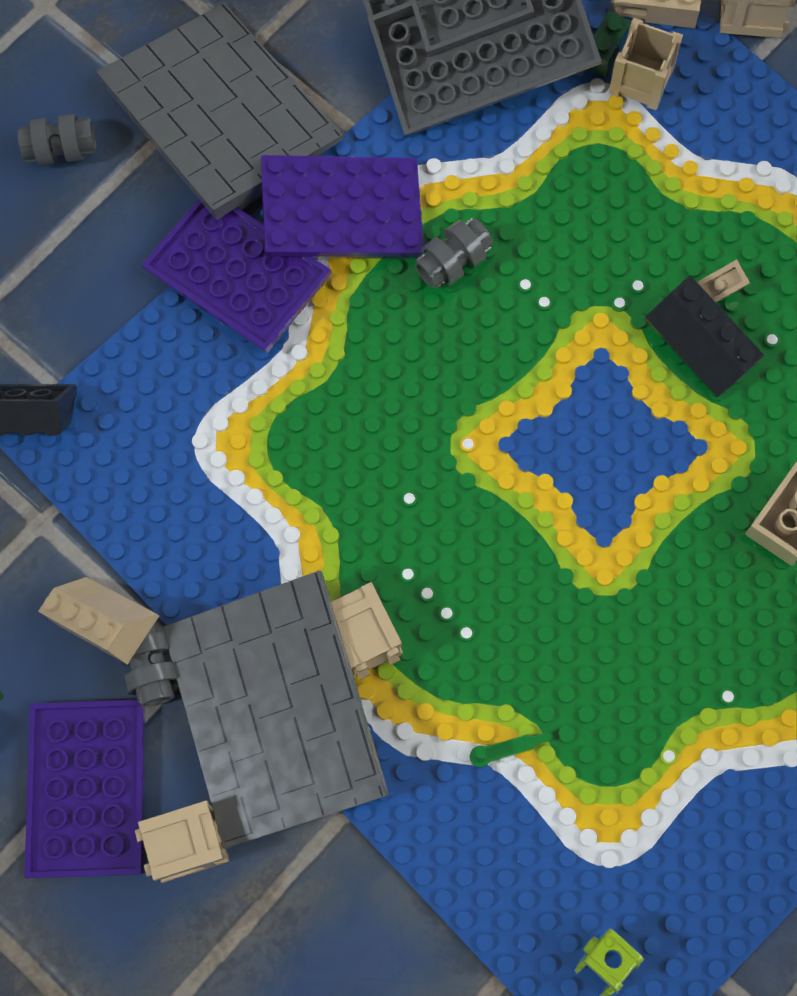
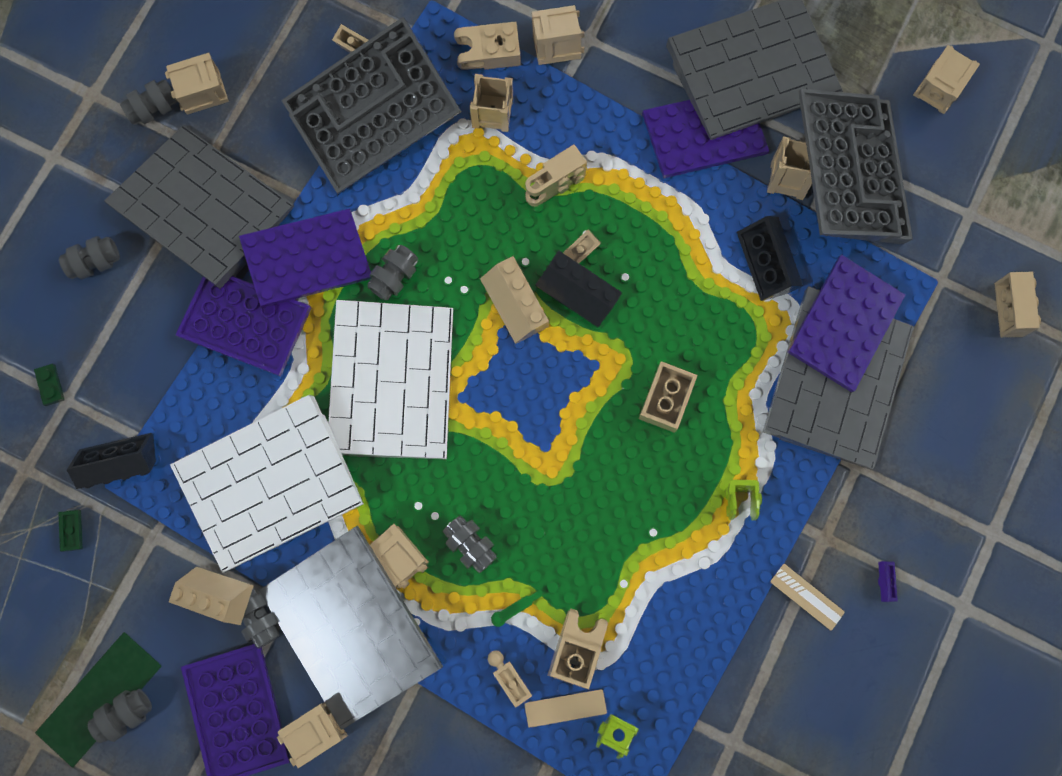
camera: 20 degrees left, 5 degrees up
(213, 487) = (267, 483): none -> white slope
(413, 396) = (391, 380): none -> white slope
(461, 629) = (476, 551): none -> dark grey piece
(474, 842) = (509, 679): none -> tan plate
(544, 907) = (565, 708): none -> tan sticker
(586, 822) = (577, 644): none -> tan brick
(609, 41) = (463, 90): dark green brick -> none
(611, 331) = (514, 300): none -> tan slope
(710, 179) = (556, 176): none -> tan brick

